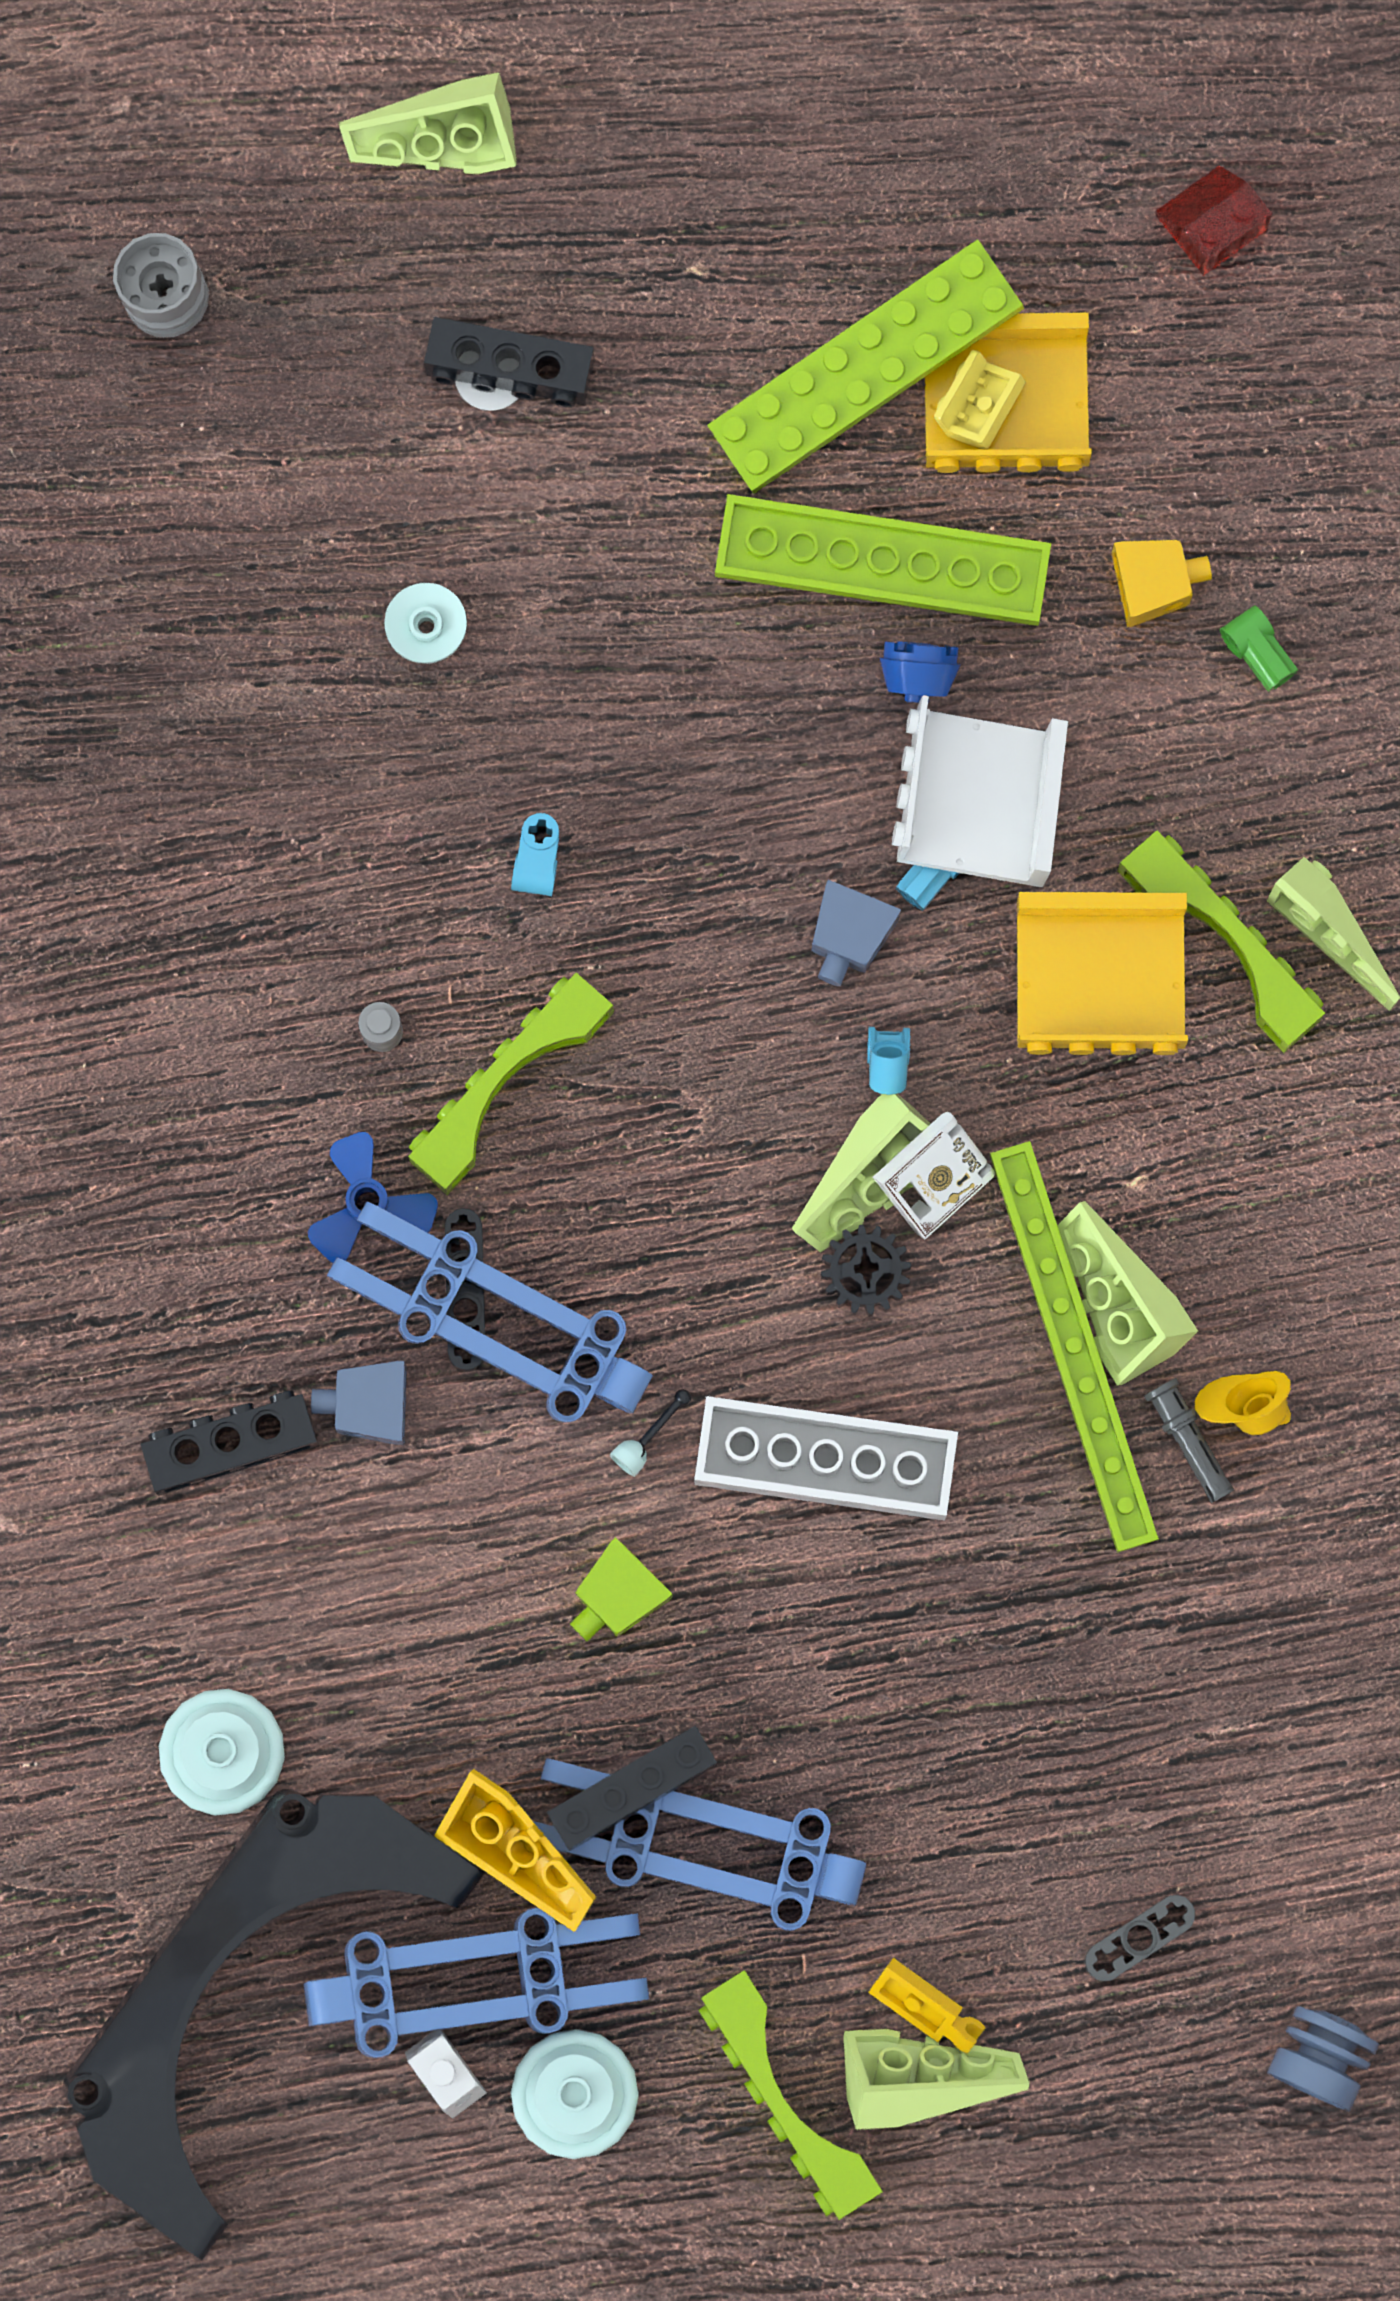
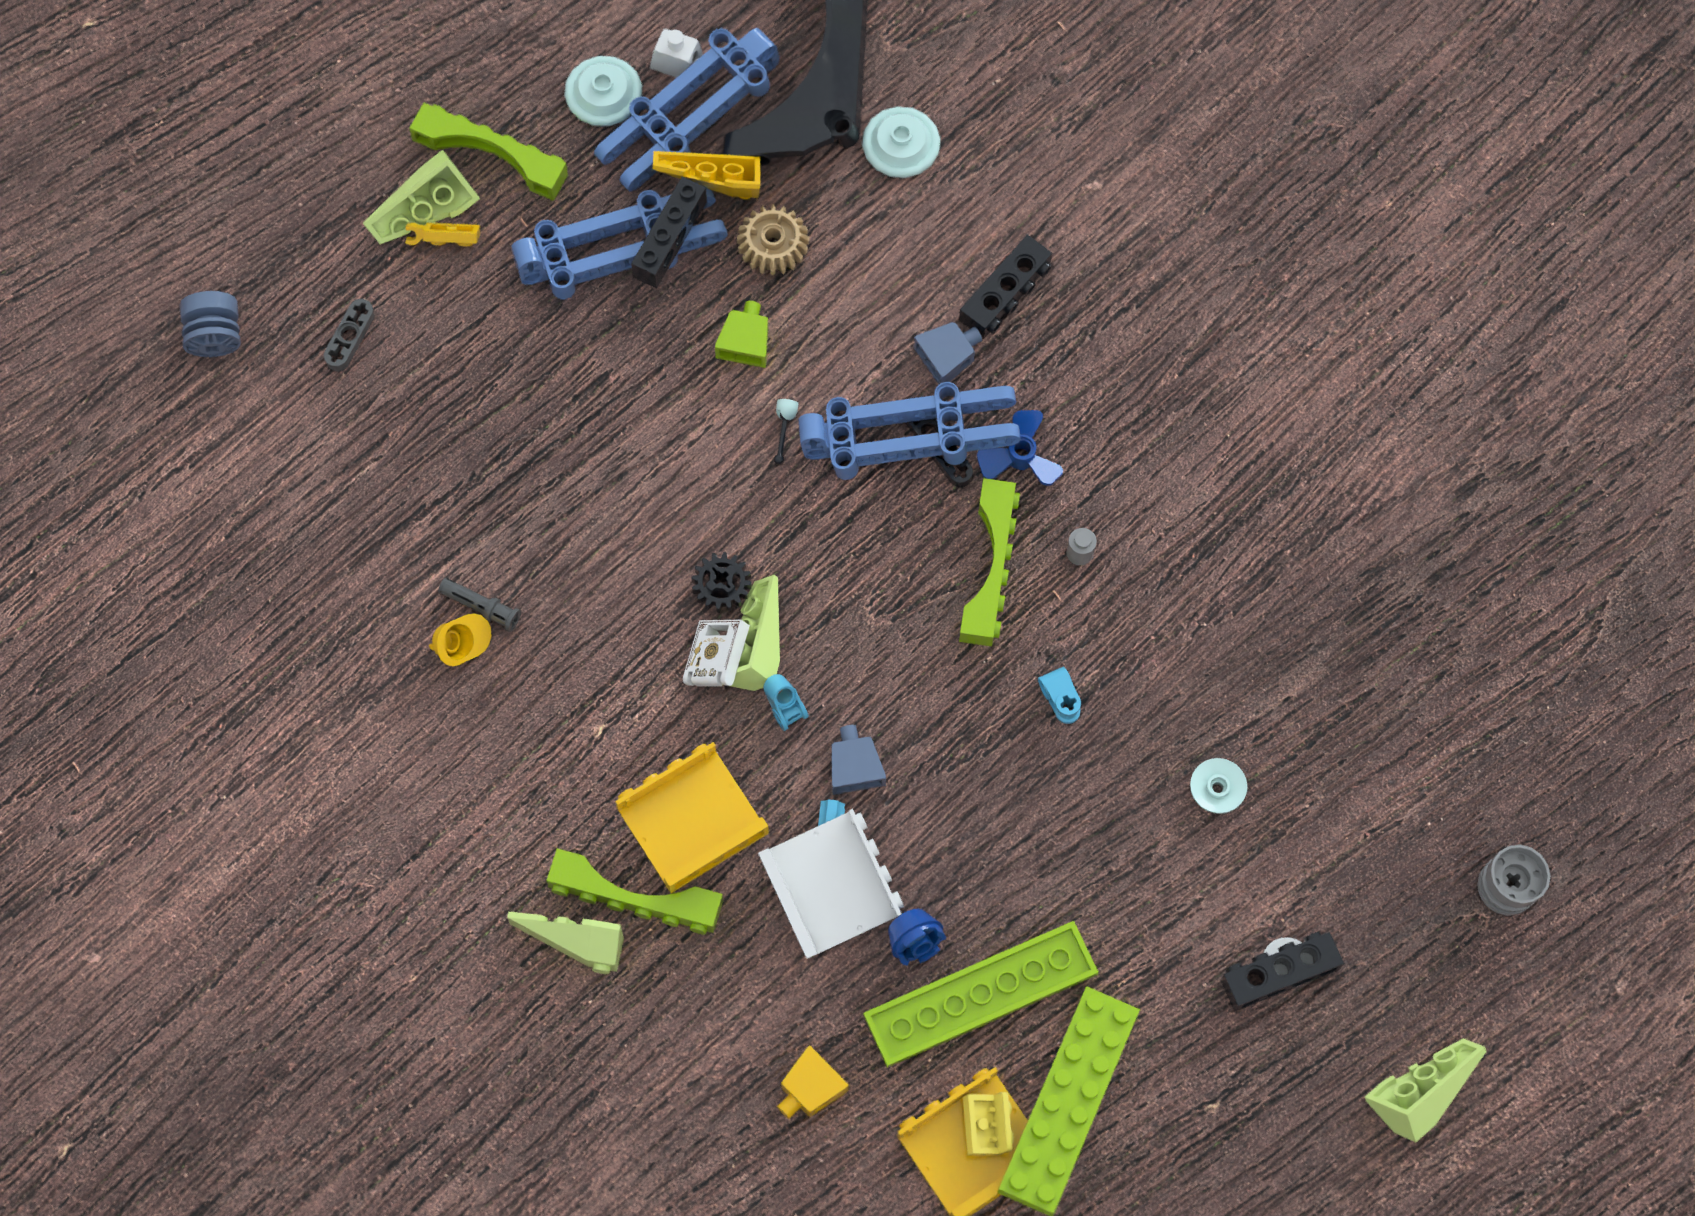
camera: 145 degrees right, 10 degrees down
(465, 1705) = (773, 224): none -> tan gear
(826, 1458) = (677, 467): white brick -> none
(1073, 1347) = (579, 614): lime plate -> none
(1130, 1307) = (555, 652): yellowish green wedge -> none
(1253, 639) = (729, 1085): bright green piece -> none

